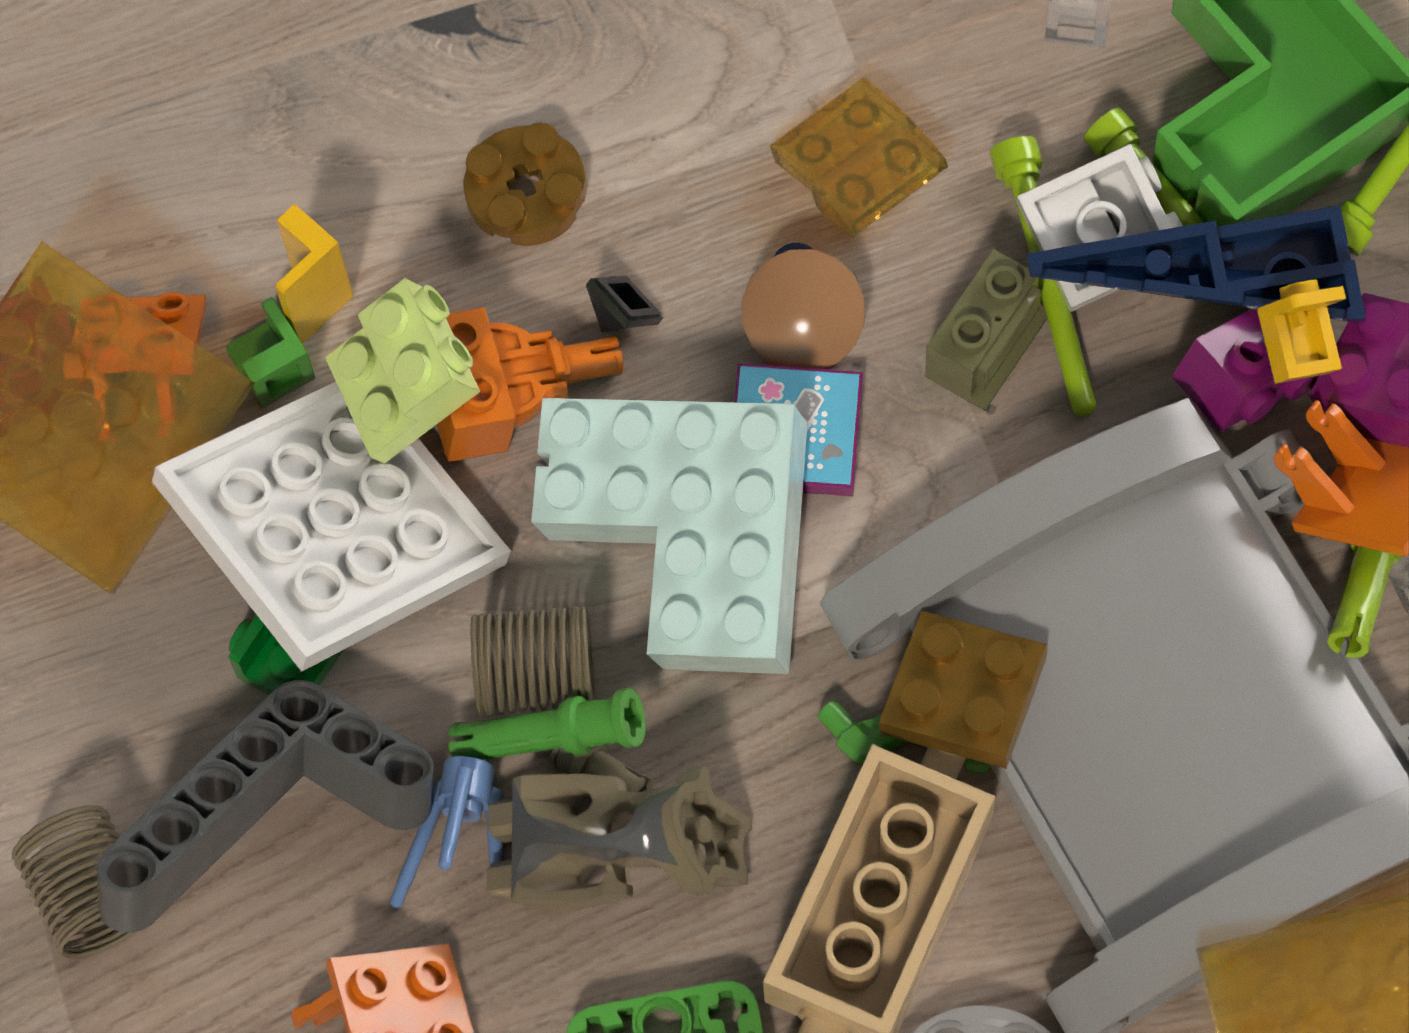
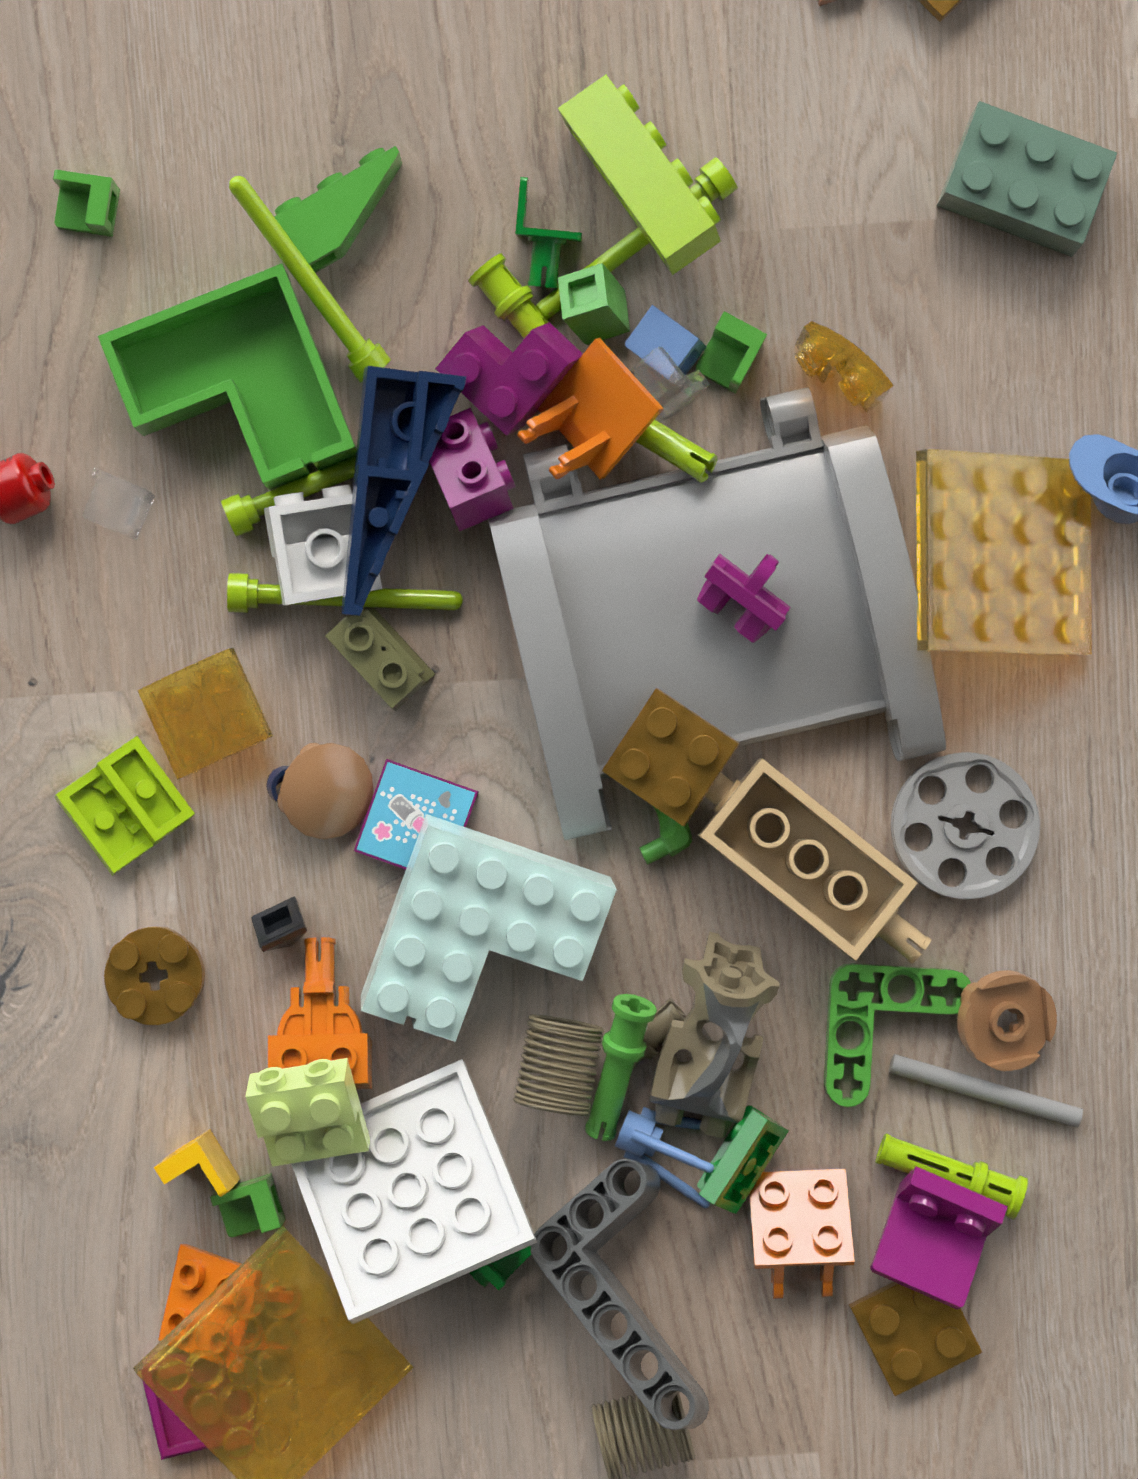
camera: 85 degrees left, 20 degrees up
(463, 915) = (741, 1160): none -> green bracket
(721, 102) = (124, 805): none -> lime slope
(1207, 718) = (762, 607): none -> magenta hips
(1301, 332) = (471, 429): yellow bracket -> none

